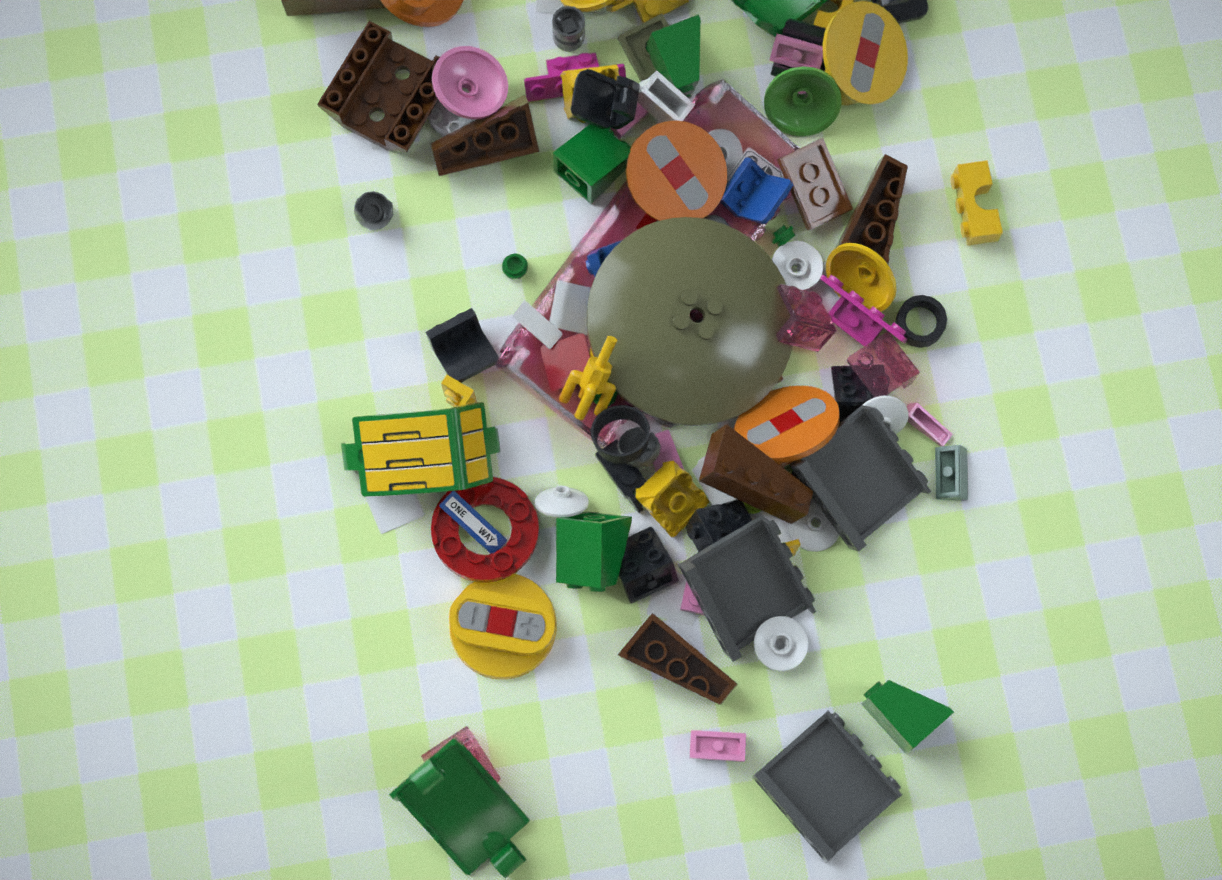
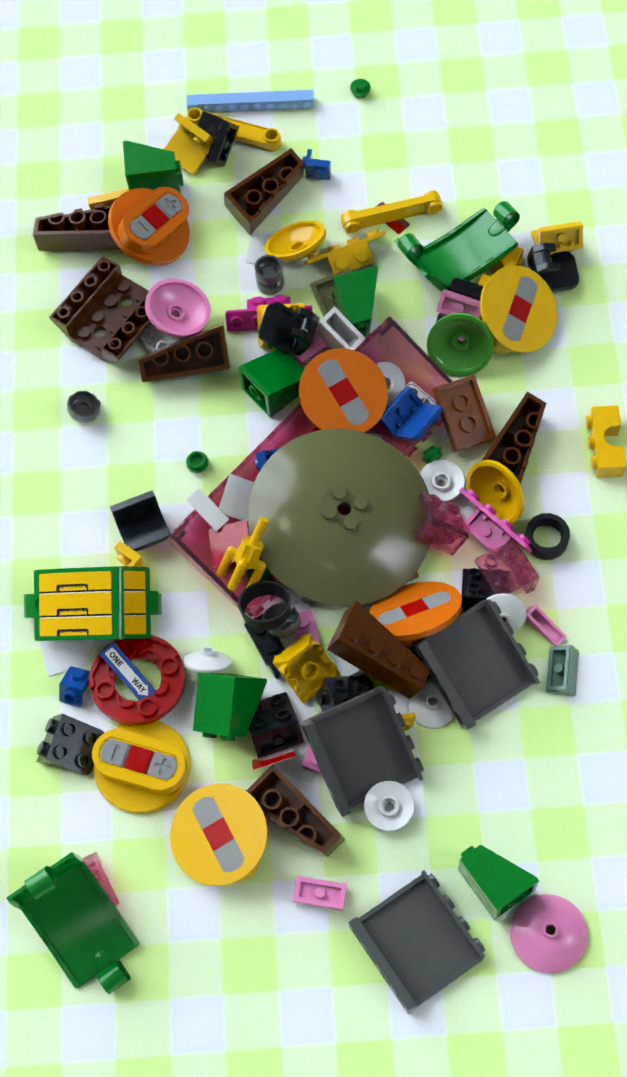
camera: 15 degrees right, 10 degrees down
(414, 543) = (73, 686): none -> blue bracket
(419, 610) = (69, 744): none -> black bracket
(602, 695) = (219, 835): none -> yellow piece
(650, 604) = (273, 758): none -> red sticker
(948, 772) = (545, 951): none -> bright pink dish

